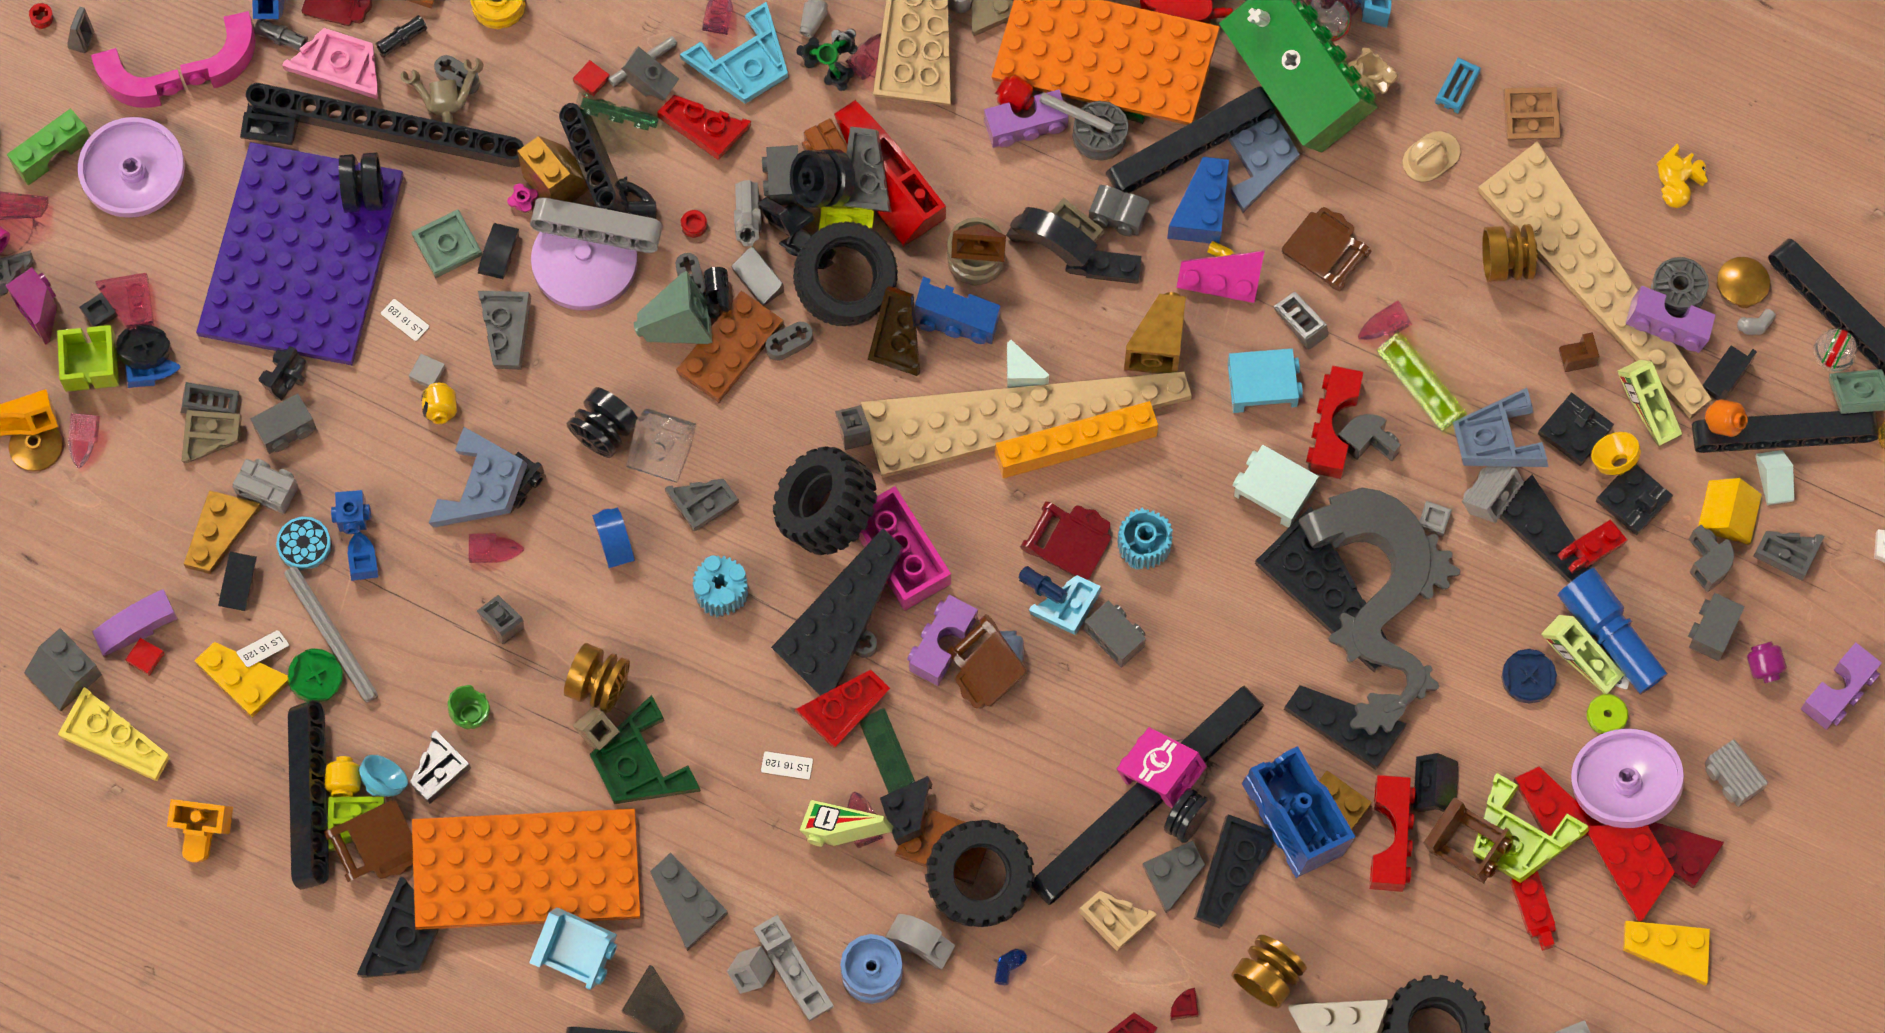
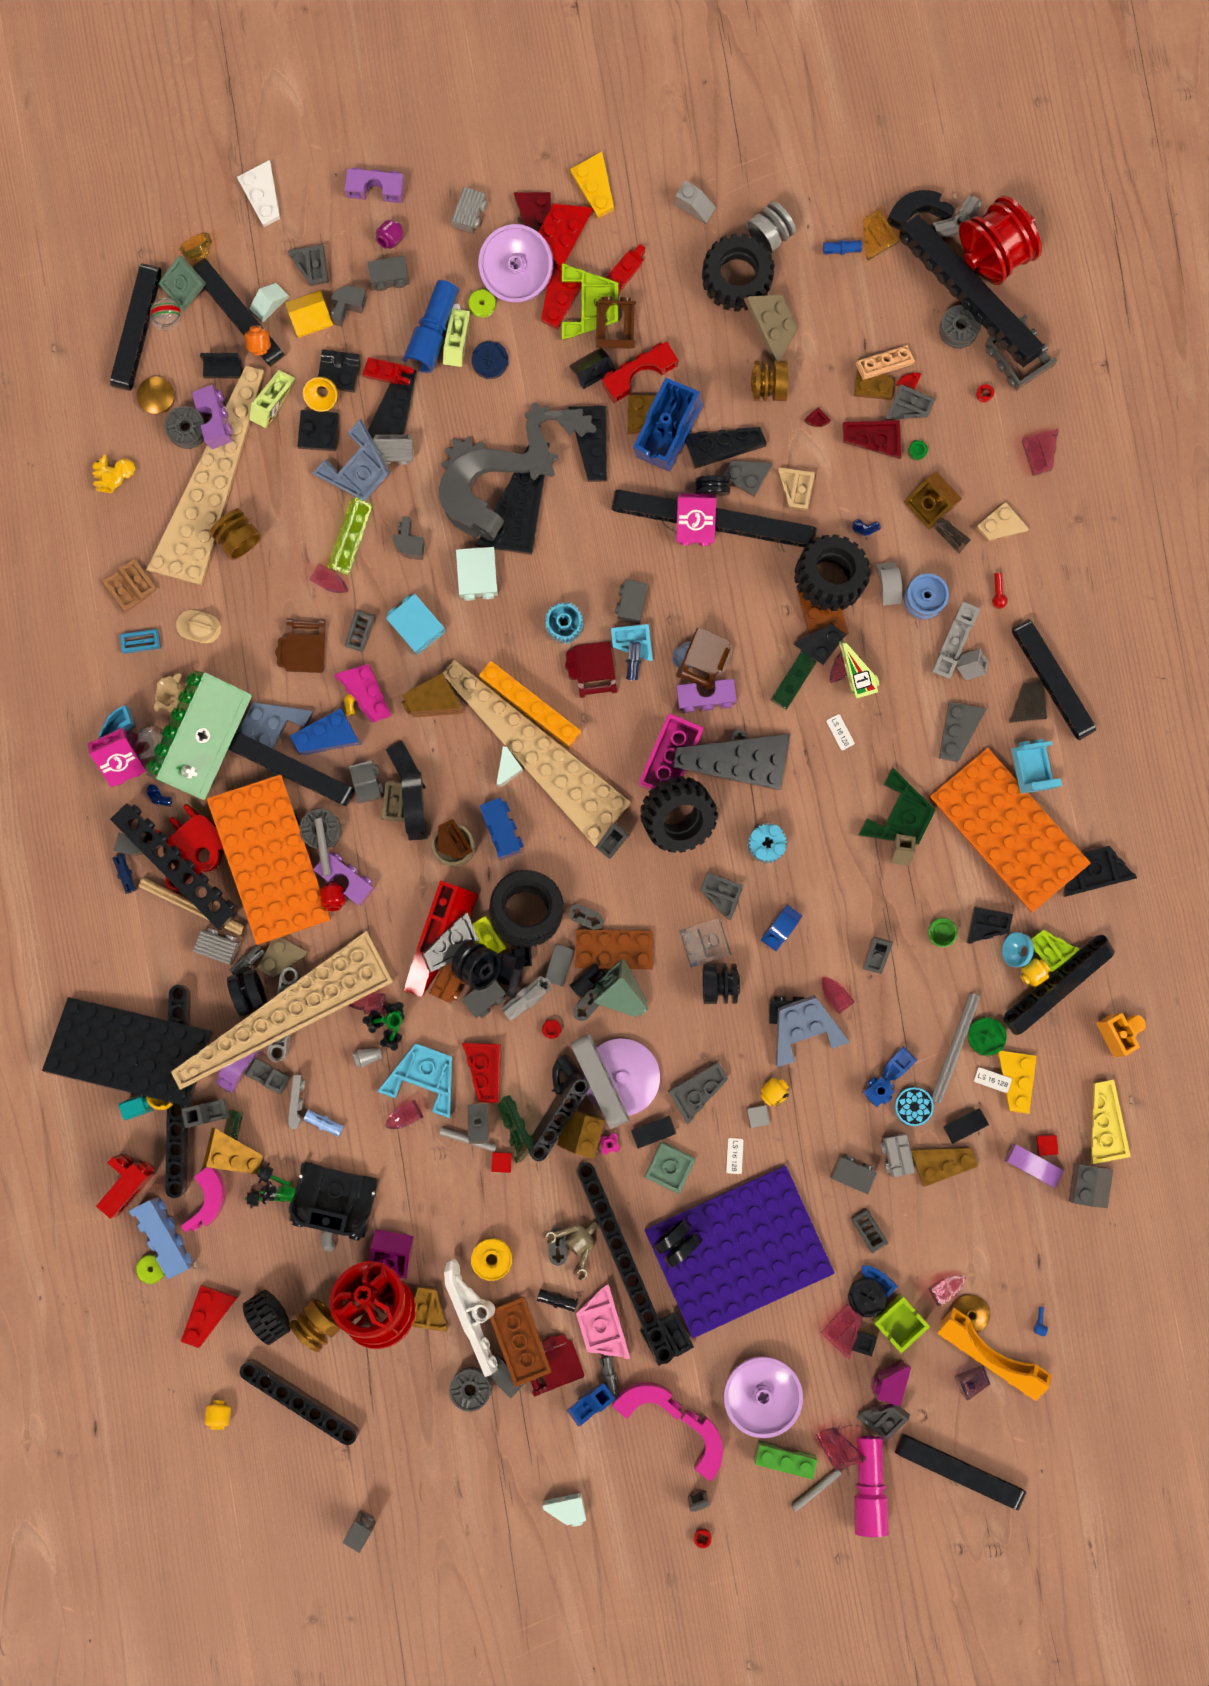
camera: 125 degrees left, 15 degrees up
(209, 433) = (890, 1215): dark tan wing -> none
(286, 373) = (820, 1197): black hips -> none
(381, 841) = (1053, 923): reddish brown piece -> none
(590, 675) = (874, 870): pearl gold wheel -> none
(843, 707) = (786, 722): red wing -> none
(896, 333) = (541, 852): dark brown wing -> none
(1329, 451) = (391, 576): red arch -> none
(1434, 518) = (431, 473): light grey tile -> none
(1581, 354) = (269, 457): reddish brown panel -> none
(1756, 326) = (179, 369): light grey arm -> none

